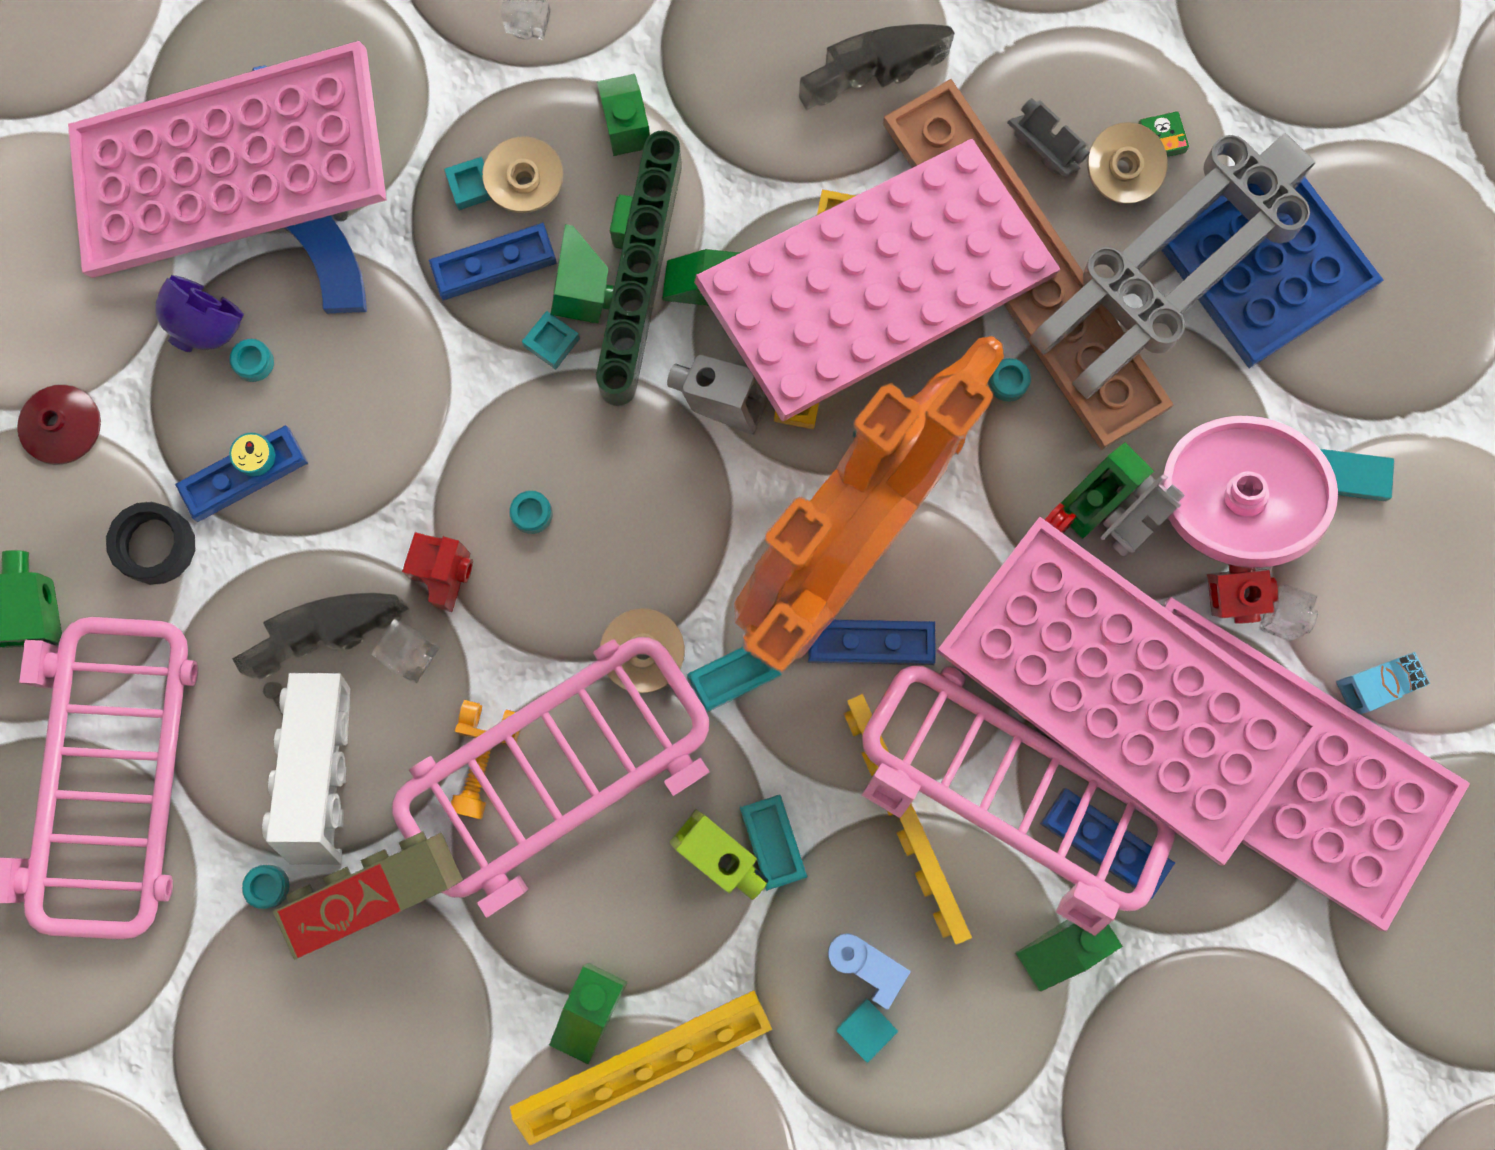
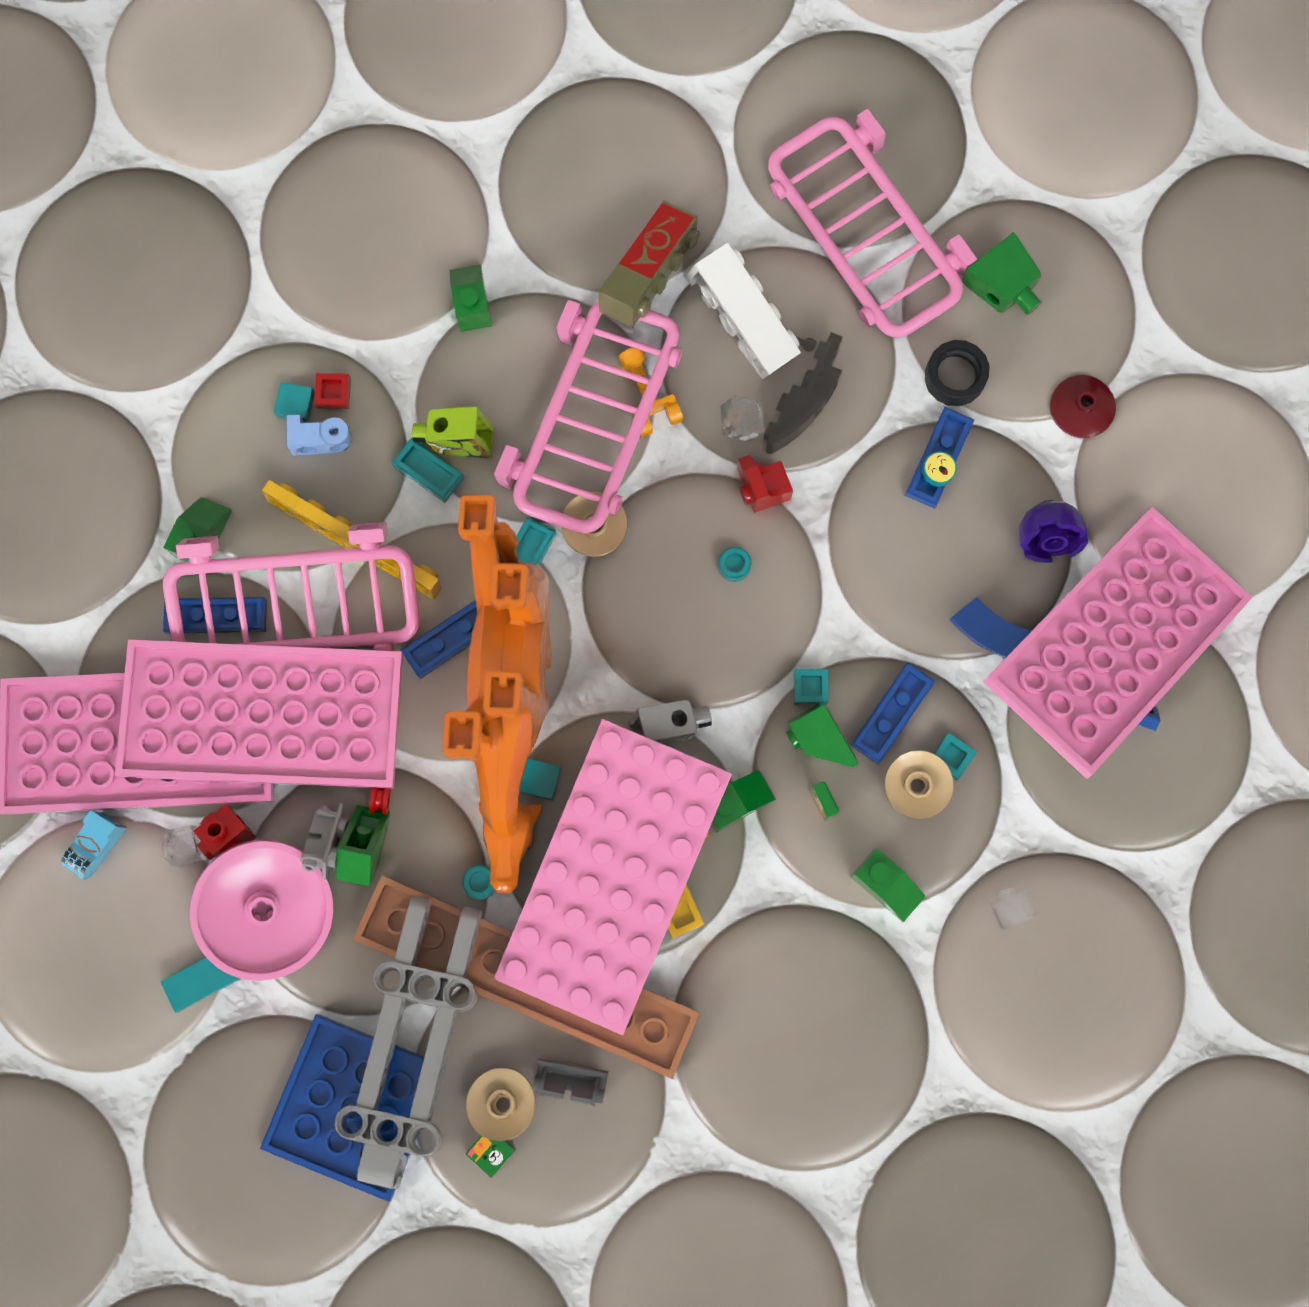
camera: 145 degrees right, 0 degrees up
(251, 360) = (995, 532): teal tile -> none
(265, 886) = (718, 232): teal tile -> none
(639, 249) = (788, 793): dark green beam -> none
(640, 1068) = (409, 296): yellow plate -> none
(816, 1009) = (332, 391): none -> red plate
(886, 52) = (731, 1067): clear smoke slope -> none

